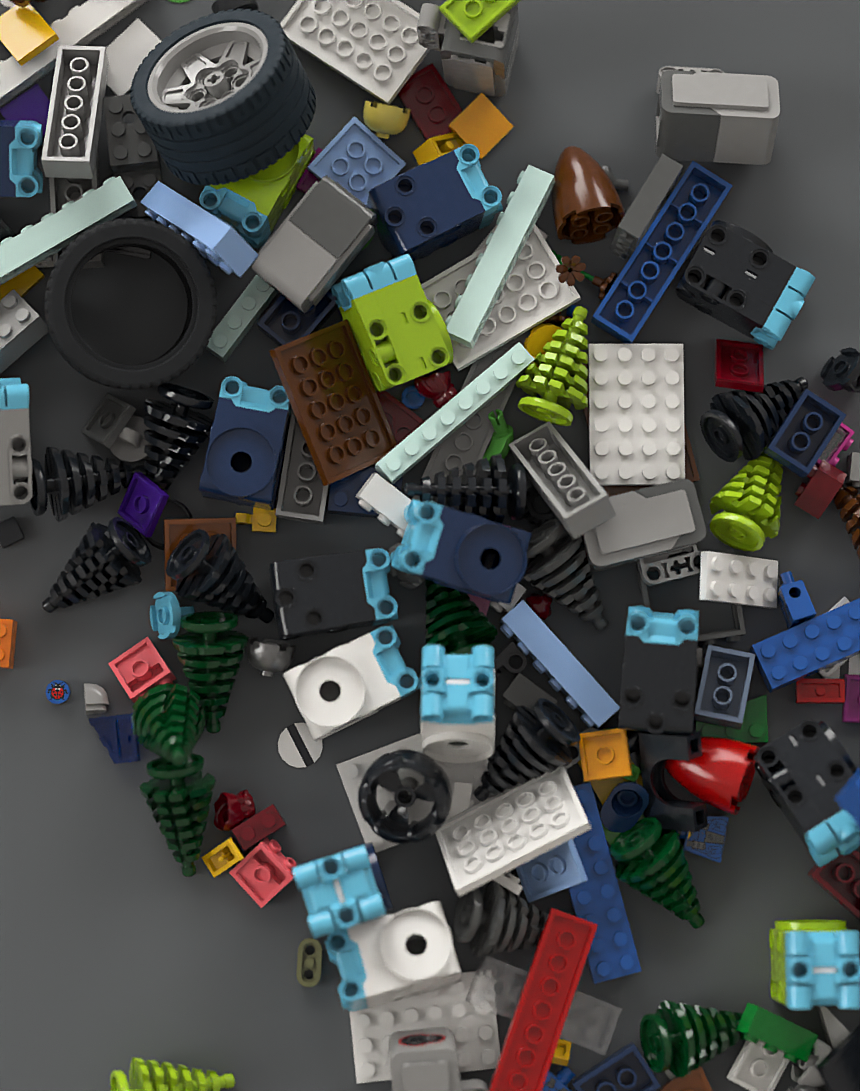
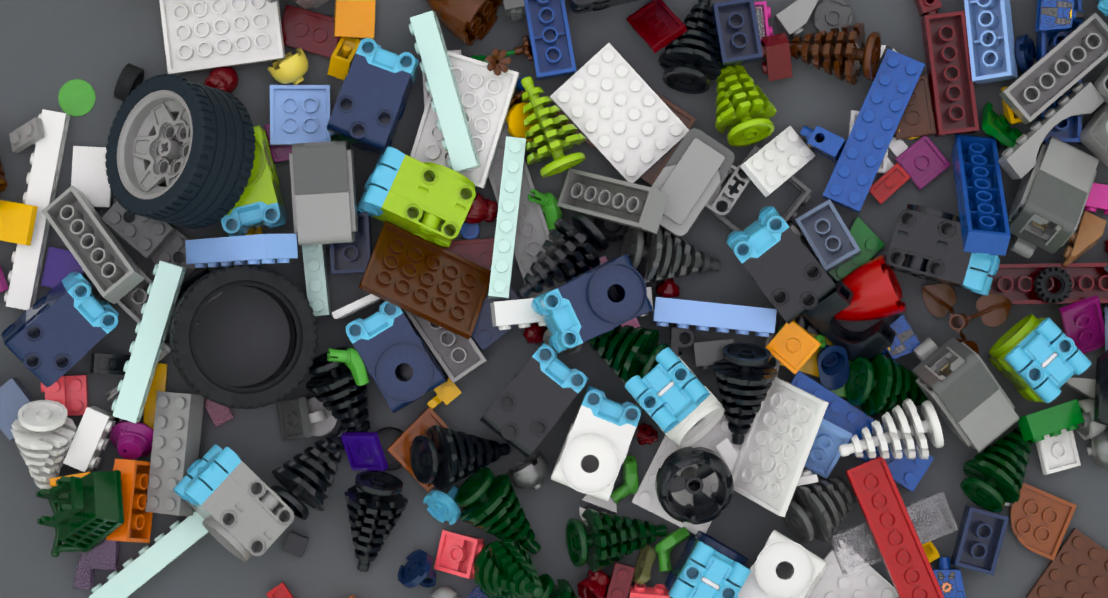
camera: 35 degrees left, 5 degrees up
(48, 358) = (217, 412): none -> clear pink tile
(91, 650) = (417, 570): none -> dark blue tile
(205, 412) = (353, 361): none -> bright green arm
(252, 372) = (355, 306): none -> white tile
(287, 774) = (607, 537): none -> dark green plant
(296, 829) = (644, 564): none -> olive plate
(320, 76) = (223, 79): none -> dark red hair
(332, 832) = (667, 545): none -> bright green arm
(352, 744) = (630, 480): none -> bright green arm
(386, 537) = (534, 333): none -> dark red piece
(403, 716) = (646, 434): none -> dark red piece
(639, 922) = (900, 433): none -> white plant
(721, 934) = (963, 392): none -> piece
(813, 884) = (992, 309): none -> reddish brown plant

